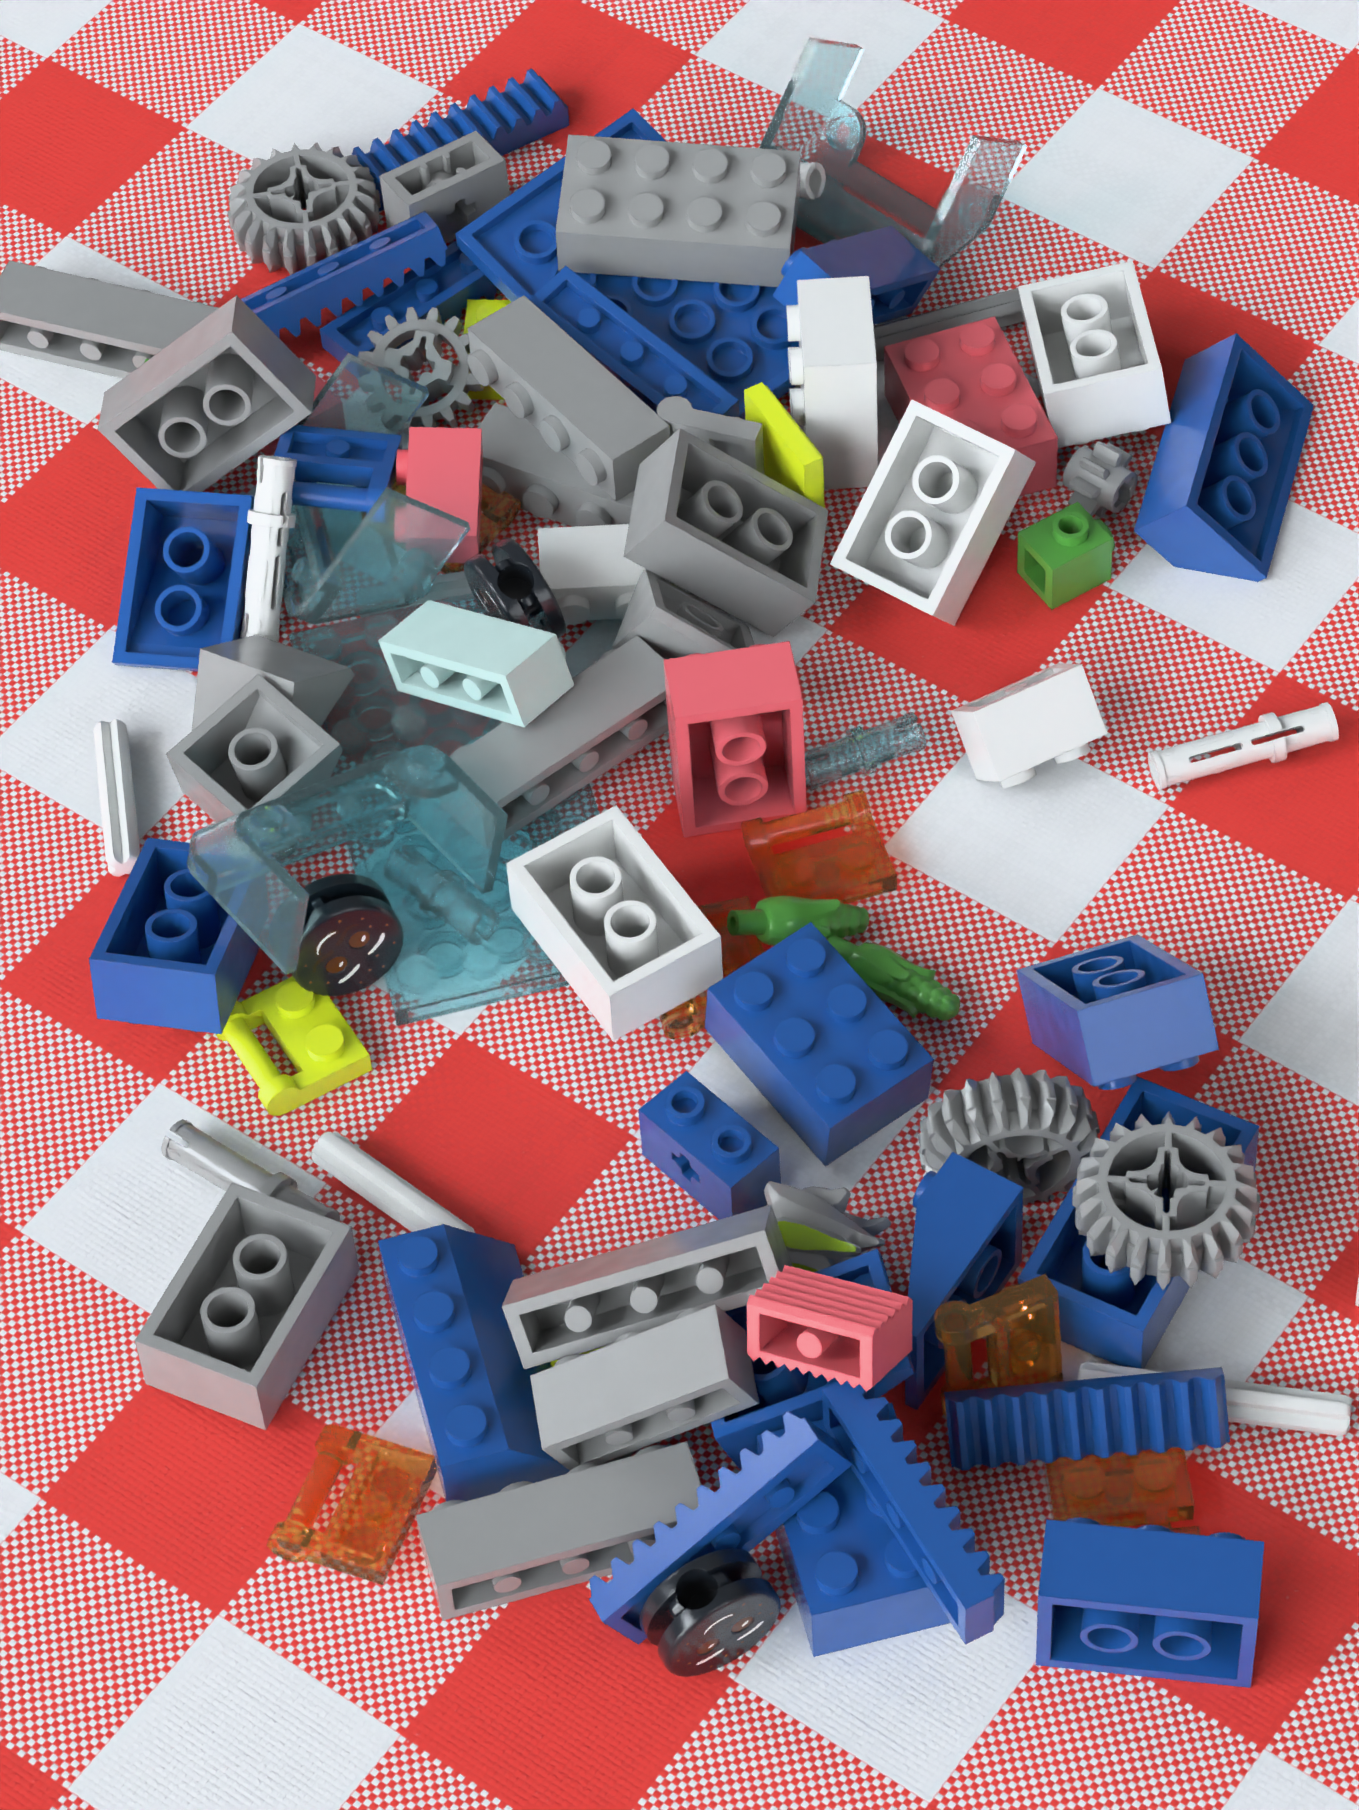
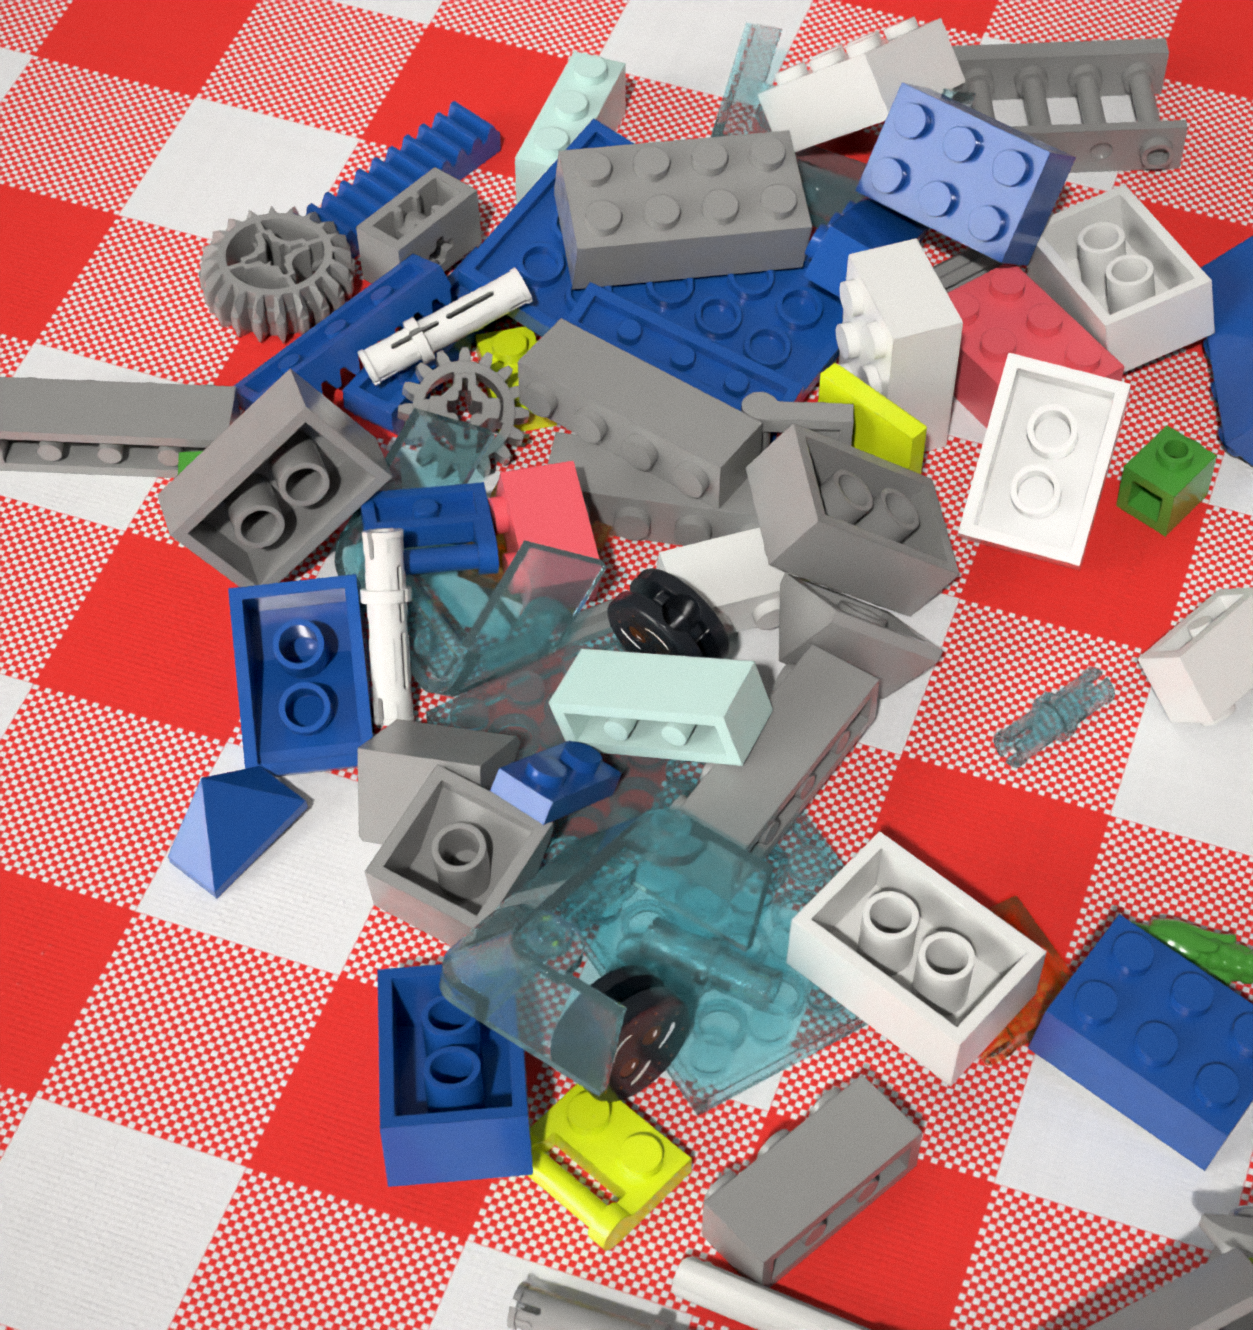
camera: 20 degrees left, 0 degrees up
(78, 693) = (231, 825): none -> blue slope
(116, 796) = (307, 927): white axle -> none
(363, 711) = (556, 781): none -> blue plate
(424, 285) = (445, 326): none -> white pin
(462, 1095) = (809, 1182): none -> light grey brick
(660, 85) = (584, 91): none -> light aqua brick
(708, 1148) = (1098, 1186): blue brick -> none
(735, 737) = (957, 731): coral brick -> none
(784, 915) = (1078, 911): bright green piece -> none
(837, 868) = (1069, 852): clear orange plate -> none
(912, 116) = (860, 86): none -> white brick
(964, 223) = (965, 174): none -> brick
(1100, 478) = (1167, 398): light grey gear -> none
(1139, 136) = (1083, 72): none -> light grey fence

